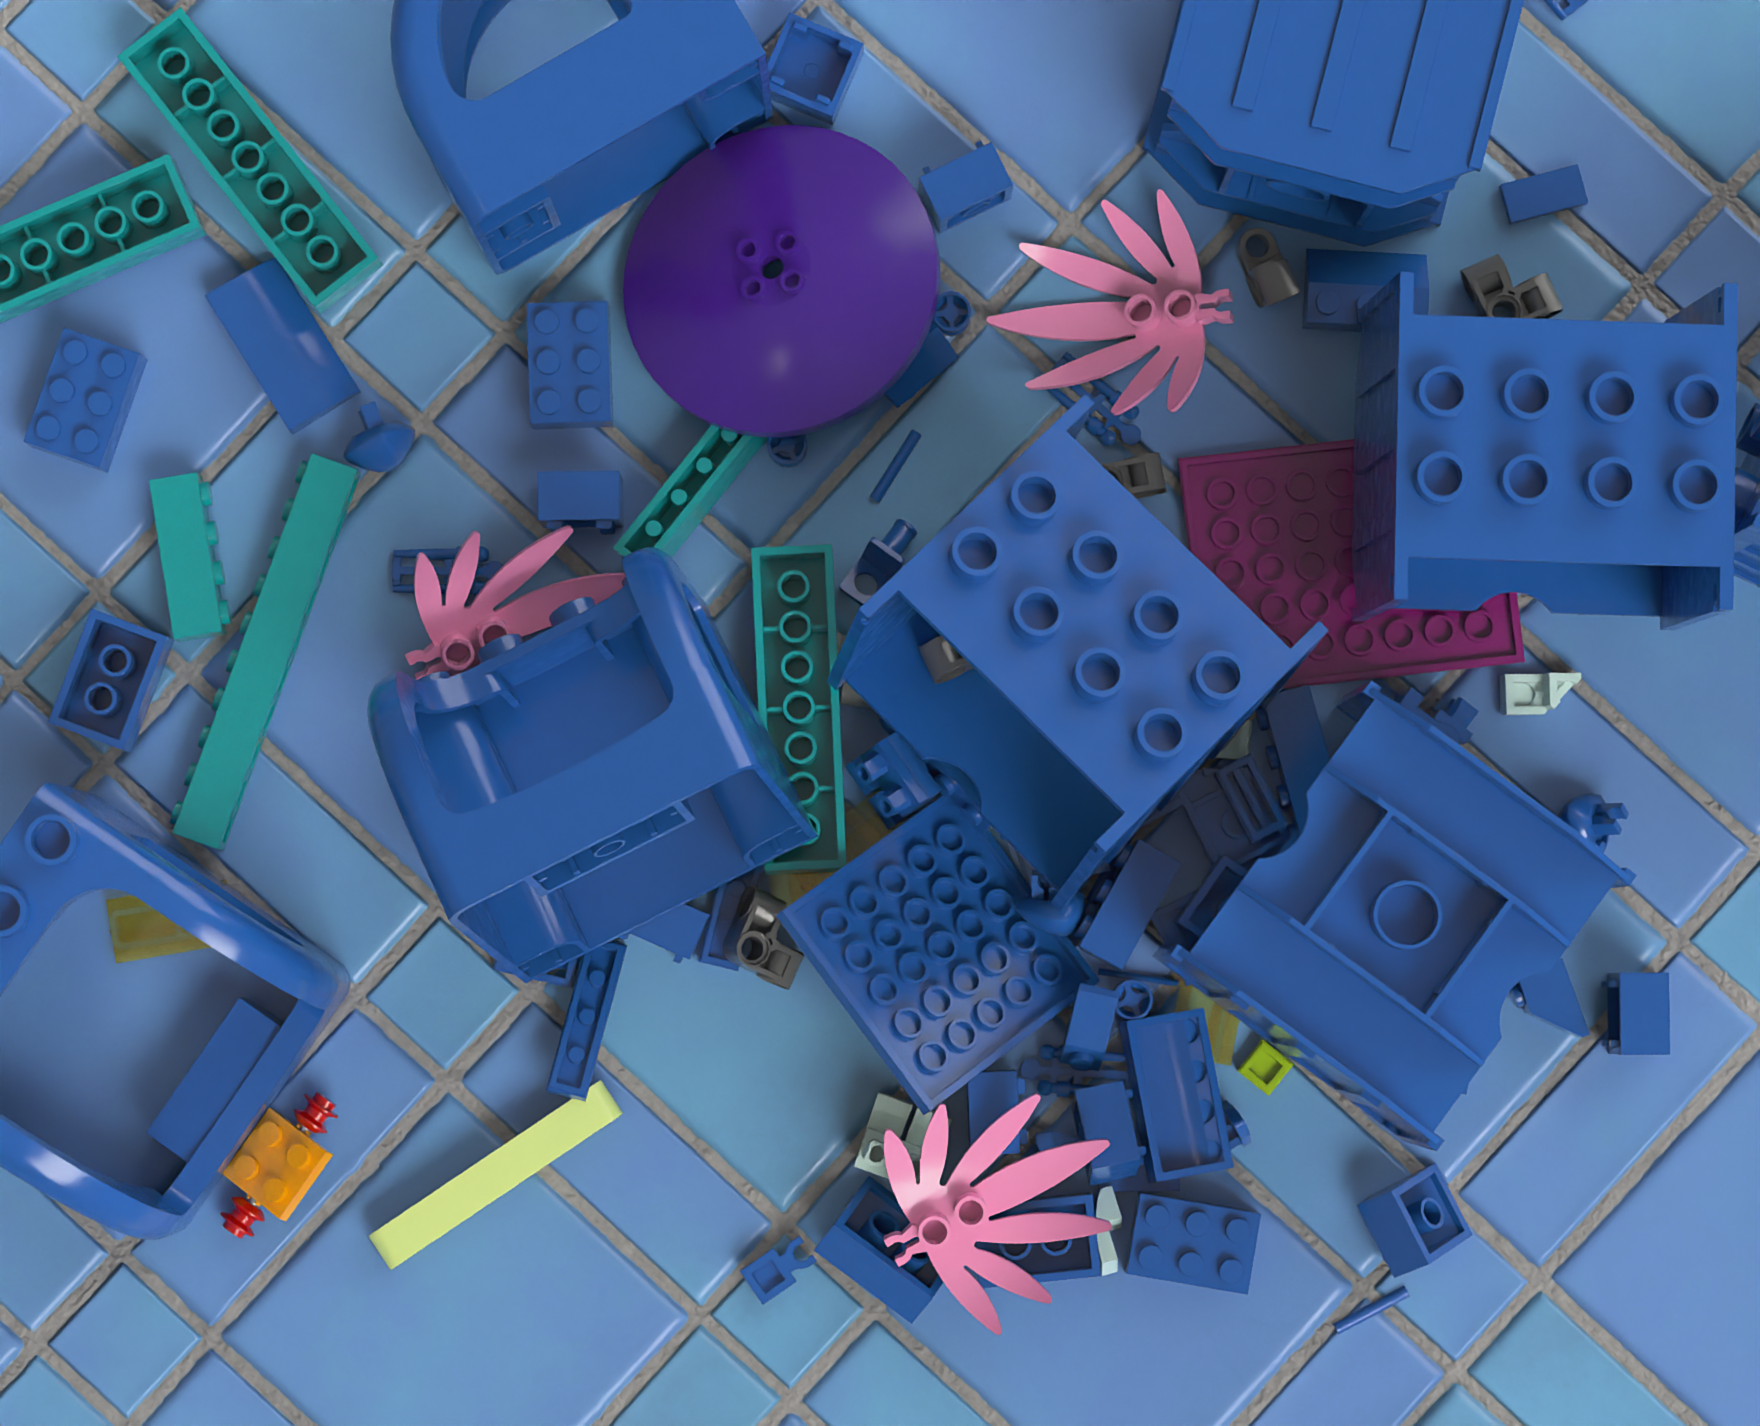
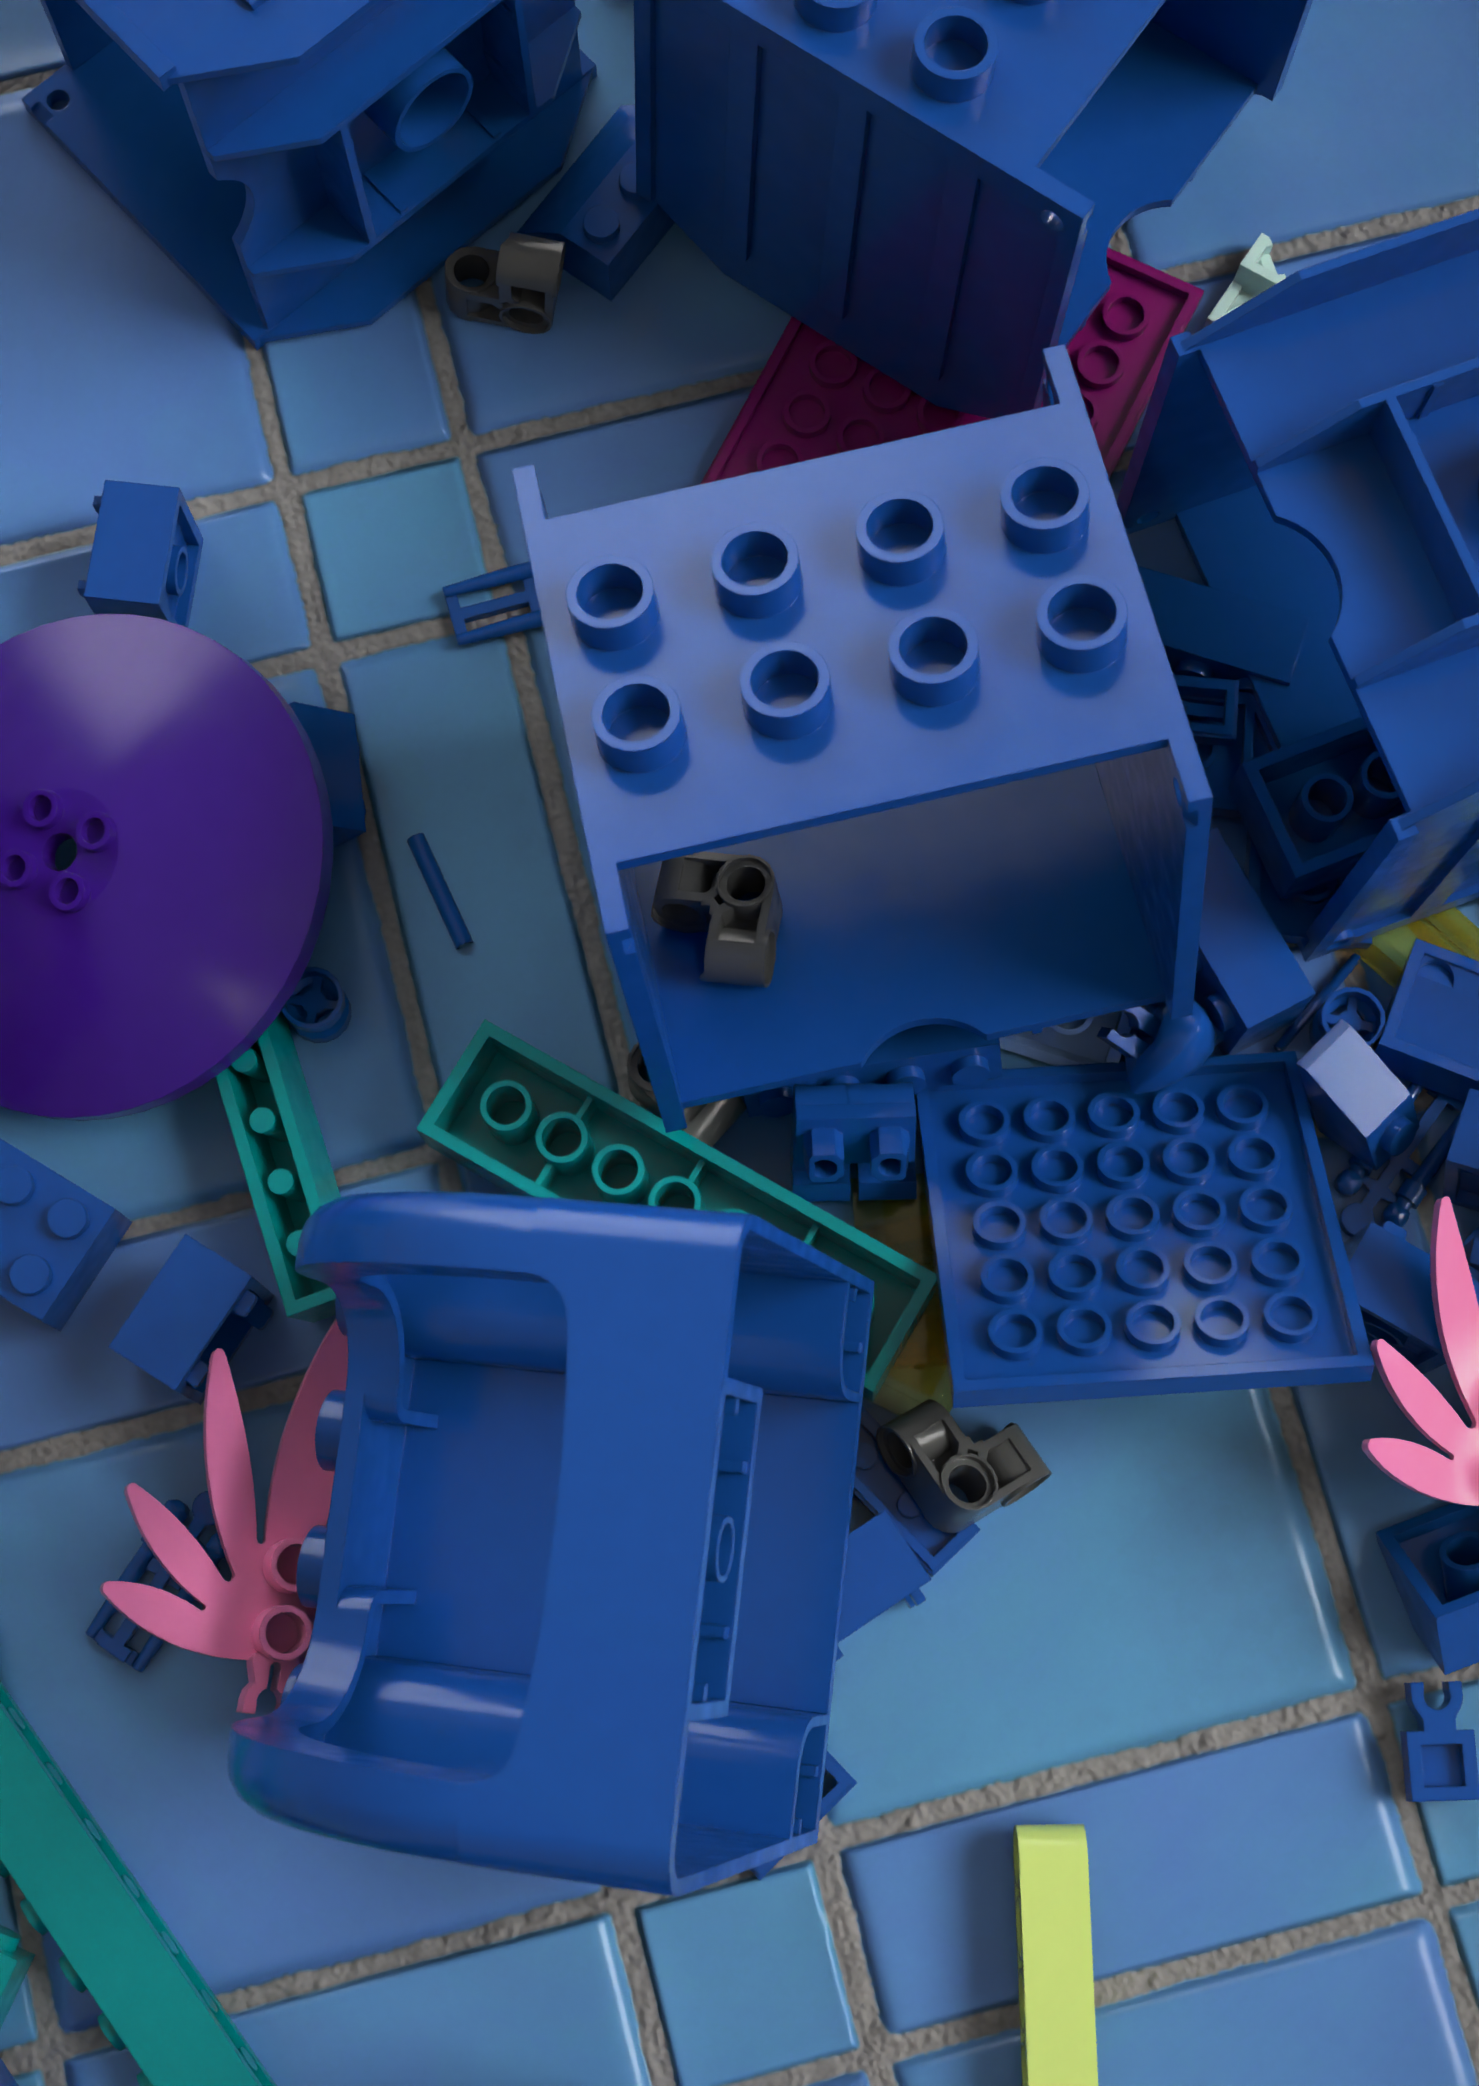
camera: 55 degrees left, 10 degrees down
(586, 1021) = (924, 1794): blue tile -> none
(880, 560) = (552, 984): blue bracket -> none
(892, 1114) = (1327, 1457): light aqua hips -> none
(951, 307) = (295, 679): blue wheel -> none
(1158, 314) = (477, 438): bright pink plant -> none

